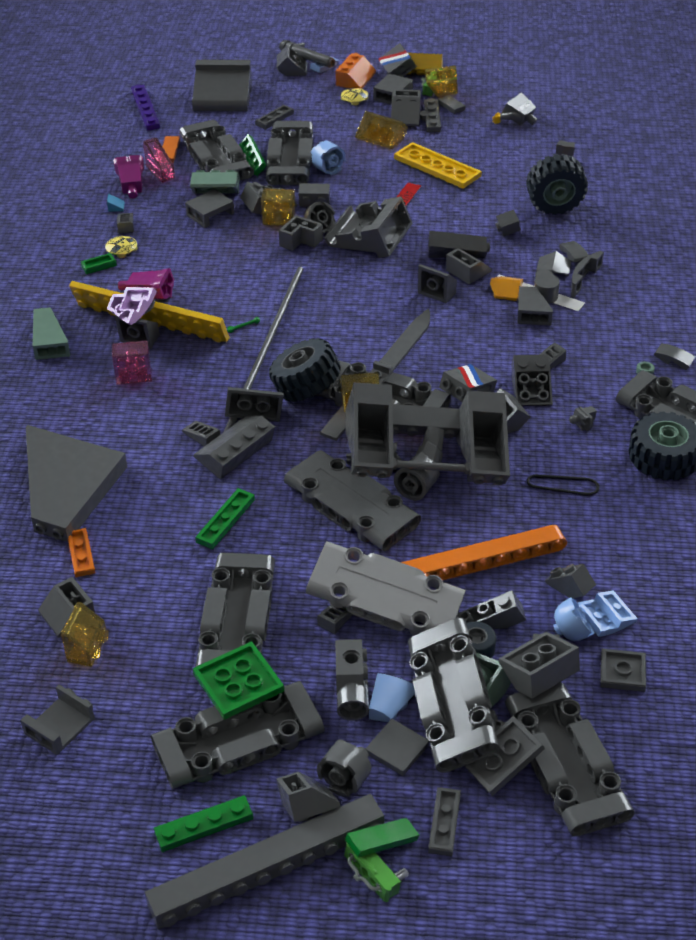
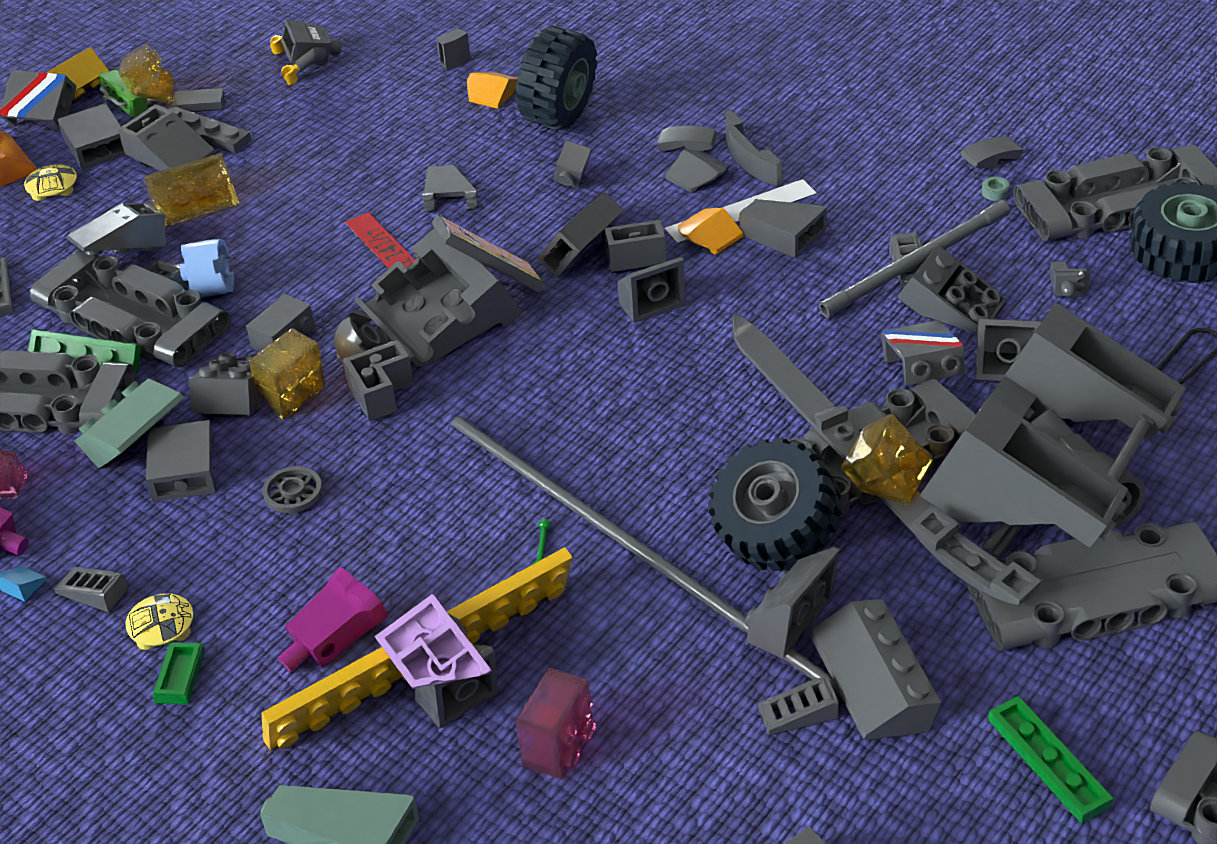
camera: 55 degrees left, 0 degrees up
(220, 245) = (292, 490): none -> dark grey wheel
(321, 441) = (970, 562): none -> dark grey slope
(332, 125) = (122, 229): none -> dark grey slope
(401, 221) = (488, 253): none -> dark grey tile
(438, 165) = (343, 174): yellow plate -> none
(461, 197) = (447, 182): none -> flag
(547, 285) = (746, 186): dark grey piece -> none
(602, 368) = (844, 298): none -> dark grey piece

